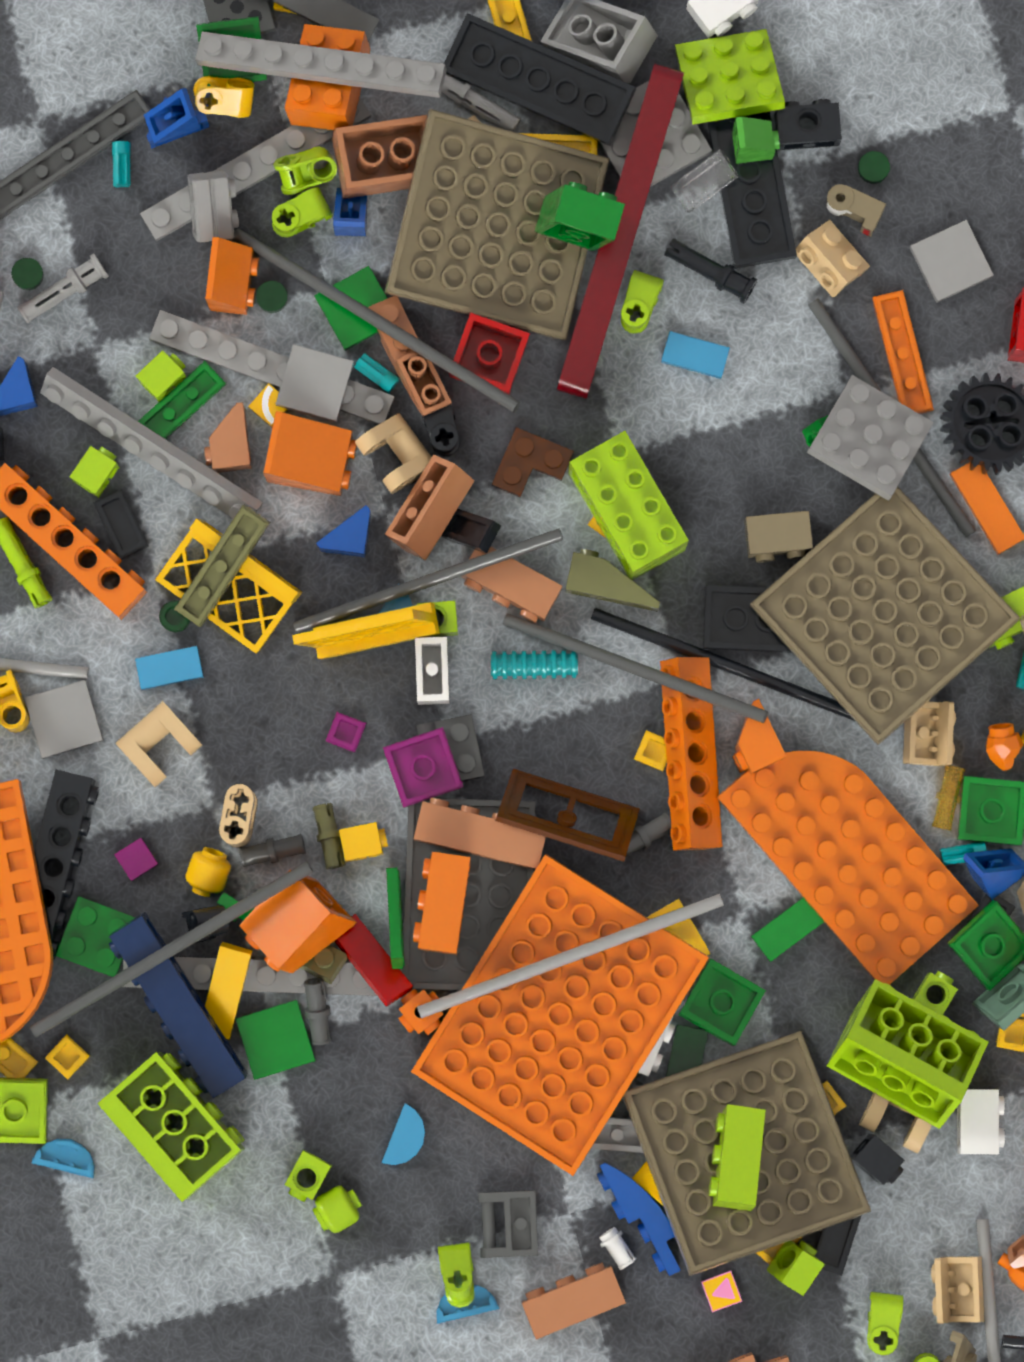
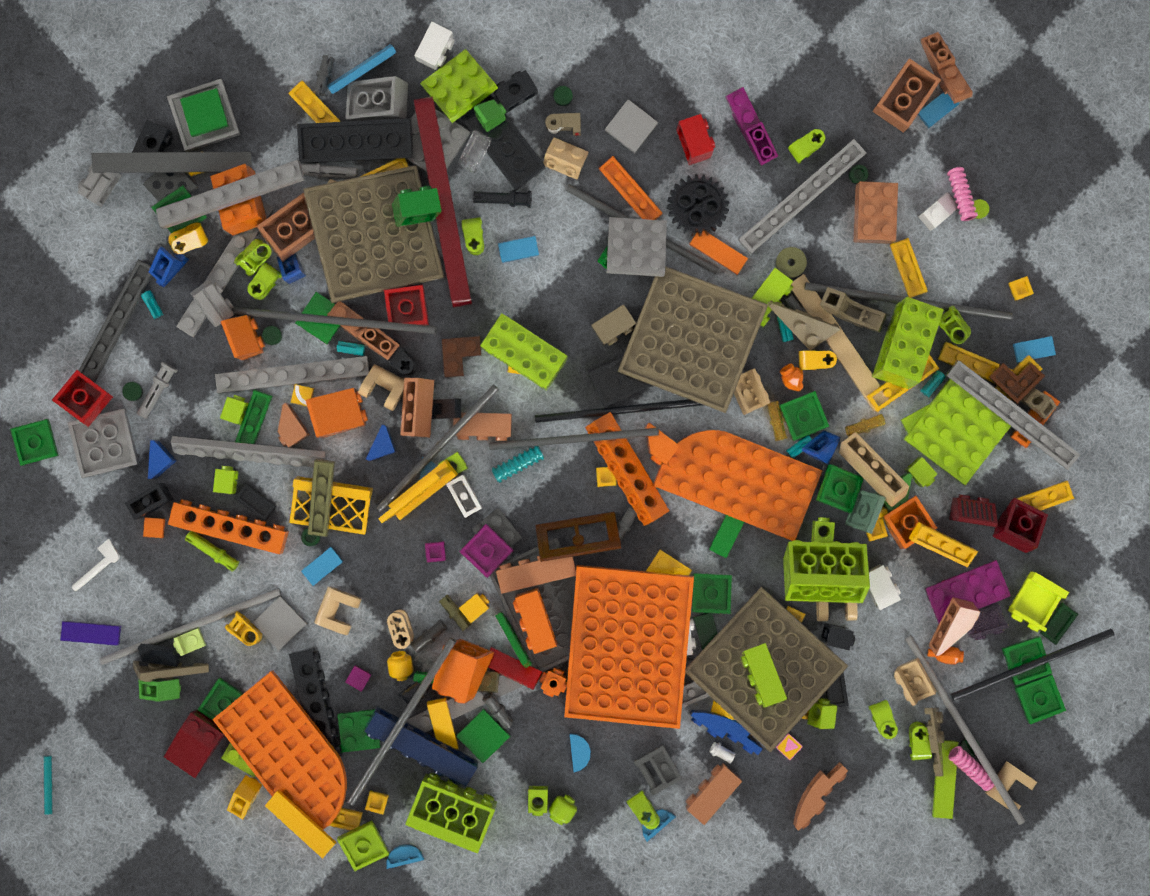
camera: 30 degrees left, 5 degrees up
(314, 383) = (319, 371): light grey tile -> none
(570, 956) = (618, 614): light grey piece -> none
(601, 580) = (530, 399): olive slope -> none

